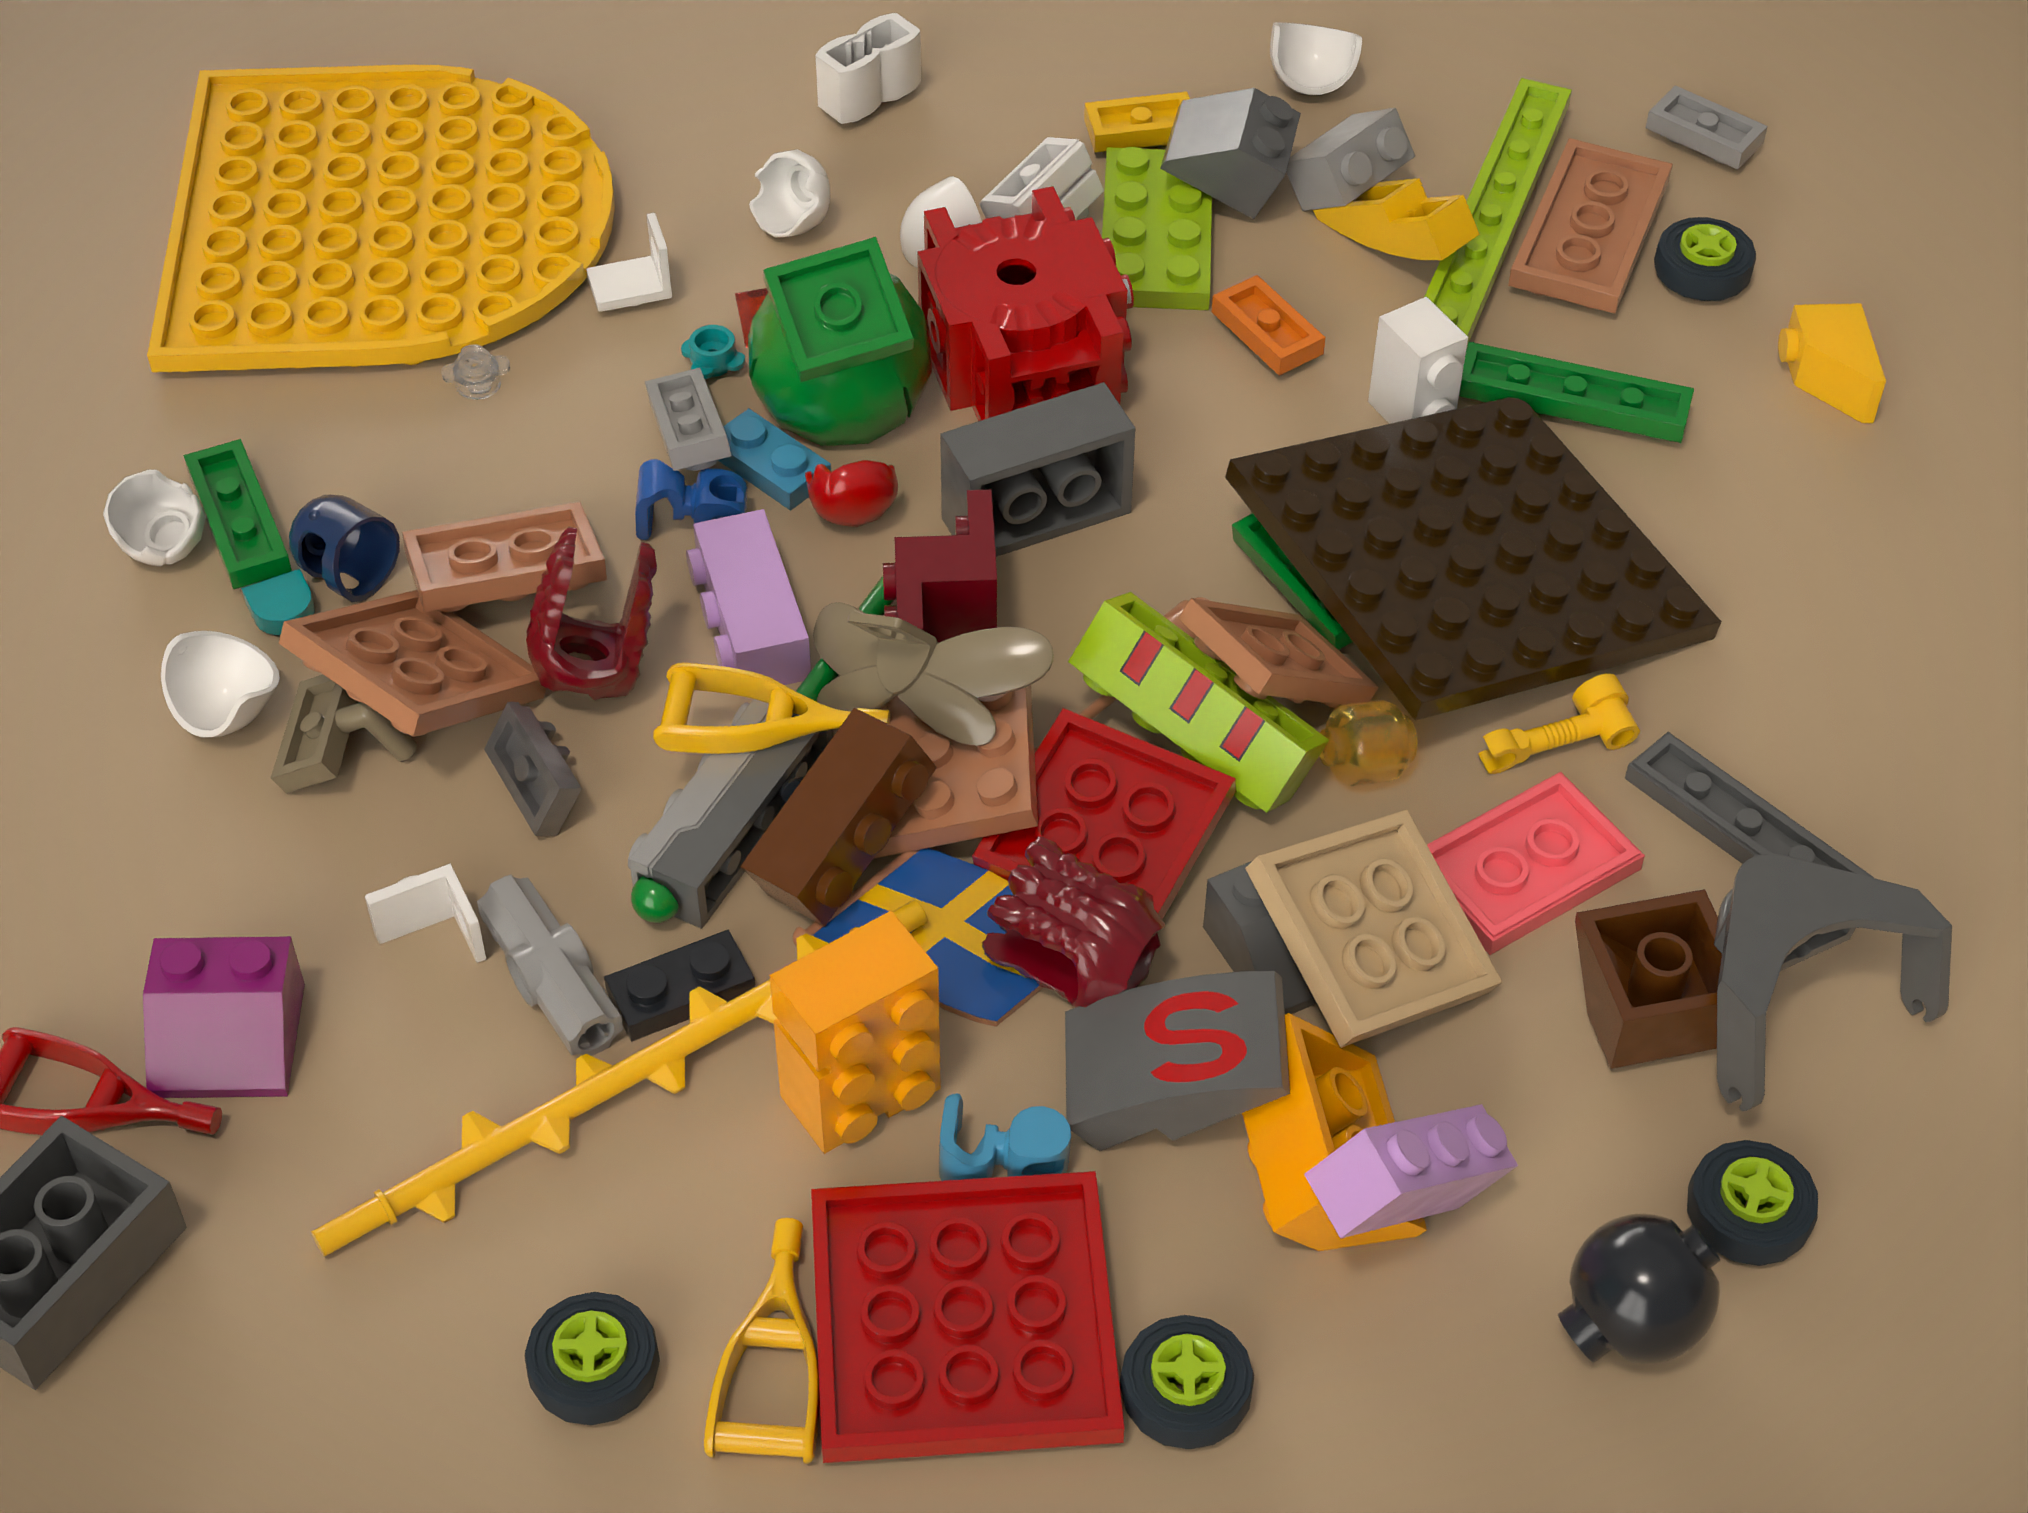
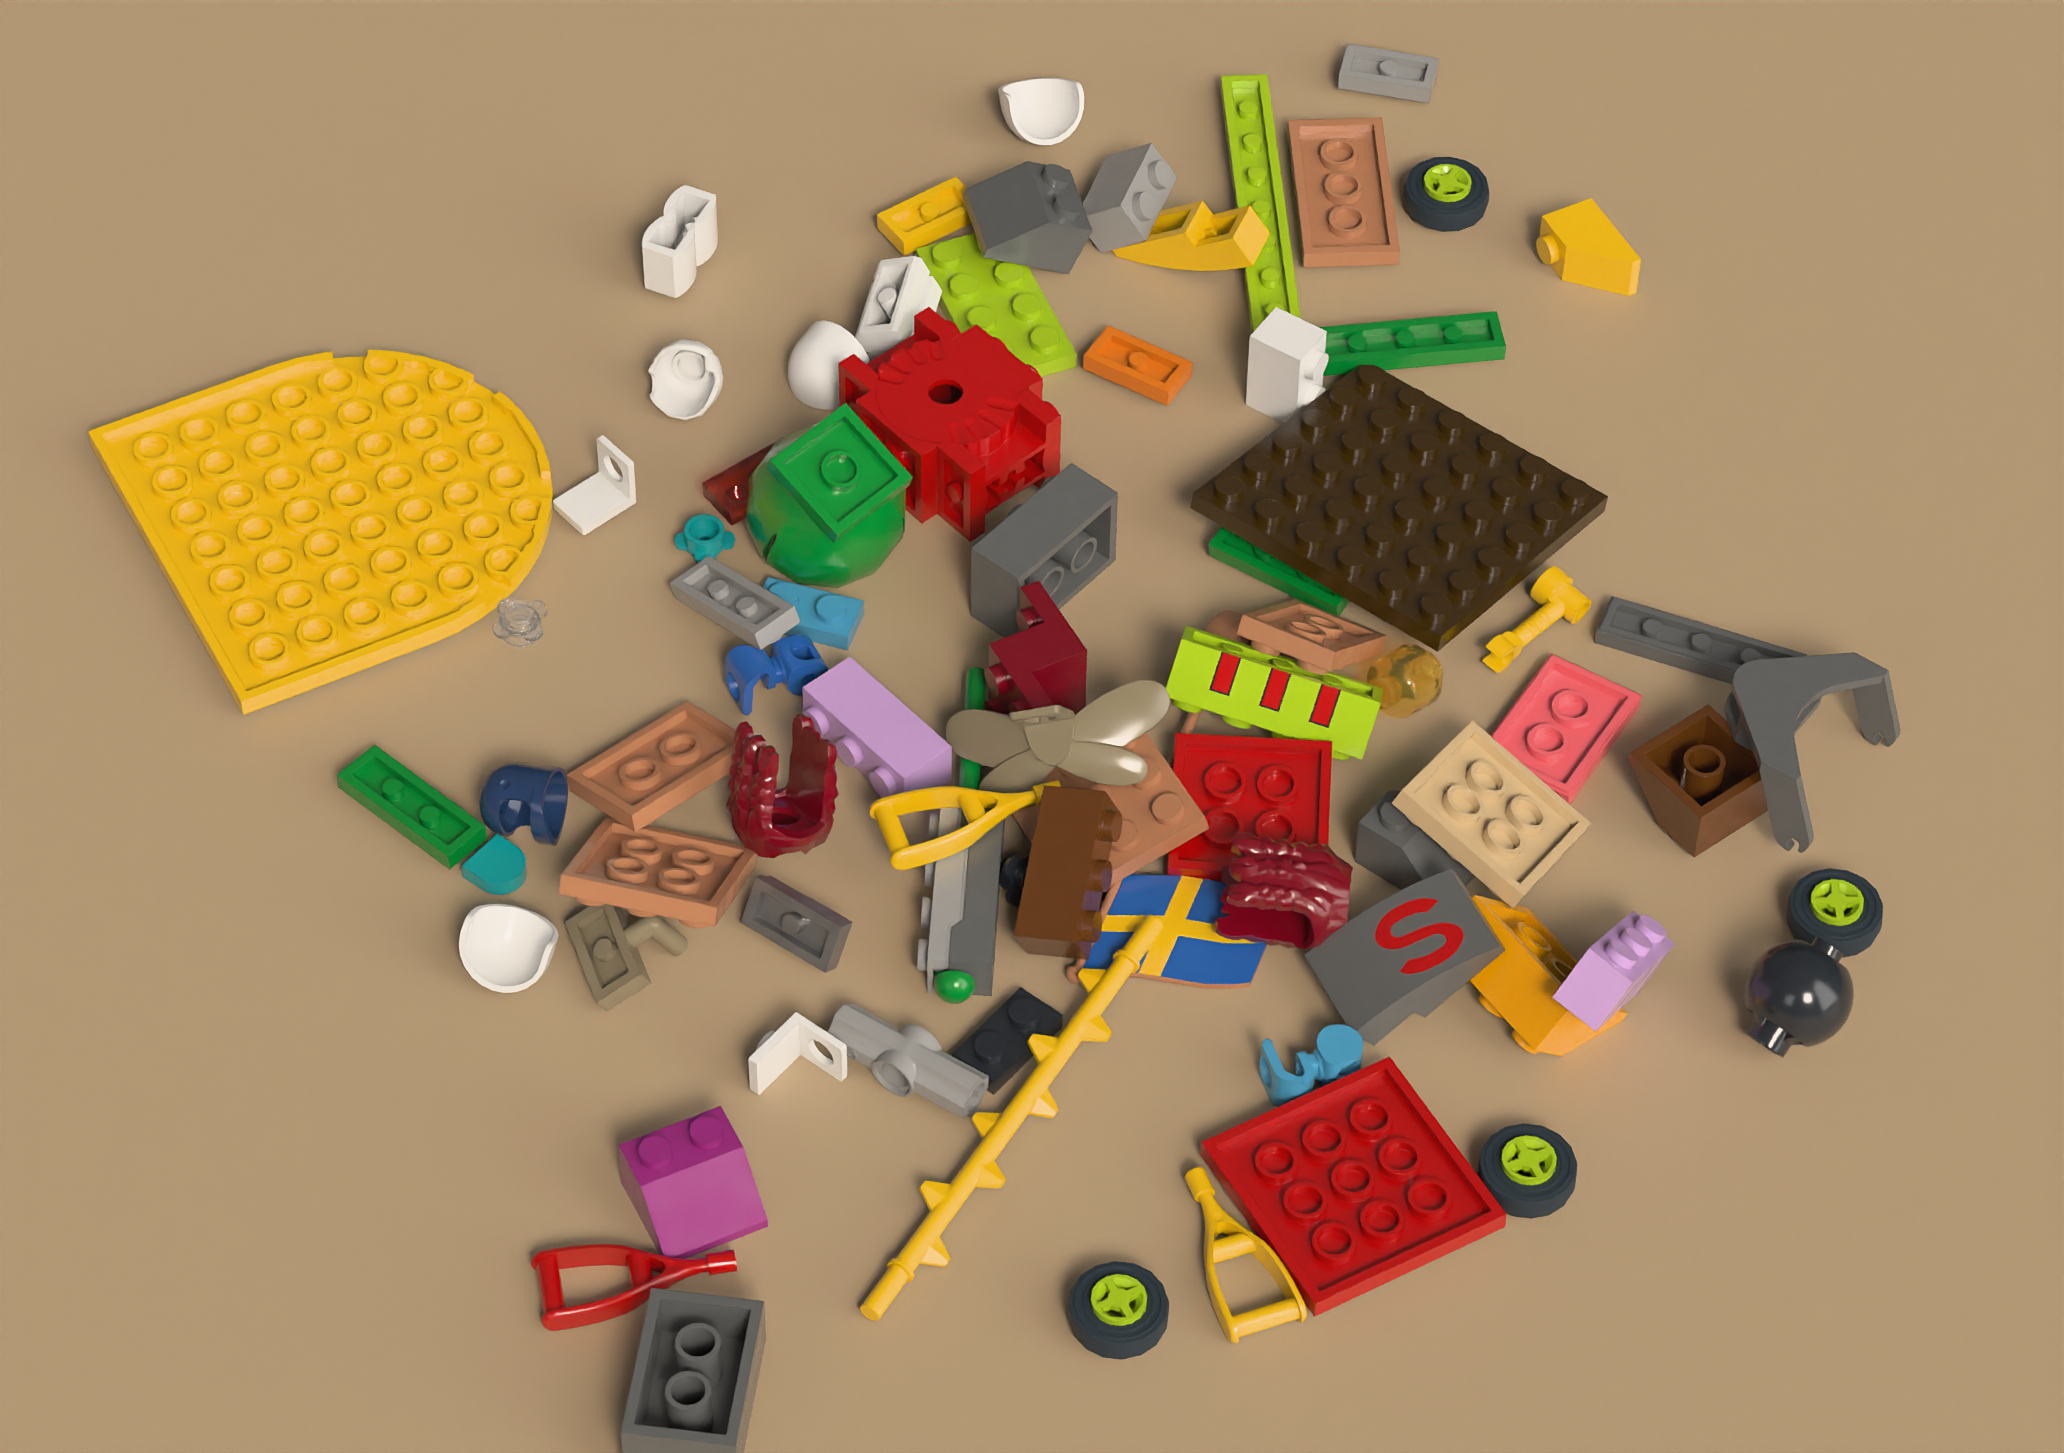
camera: 25 degrees left, 0 degrees up
(154, 518) = (356, 834): white hair -> none
(852, 492) = (902, 621): red hair -> none
(857, 1031) = (1185, 1019): light orange piece -> none

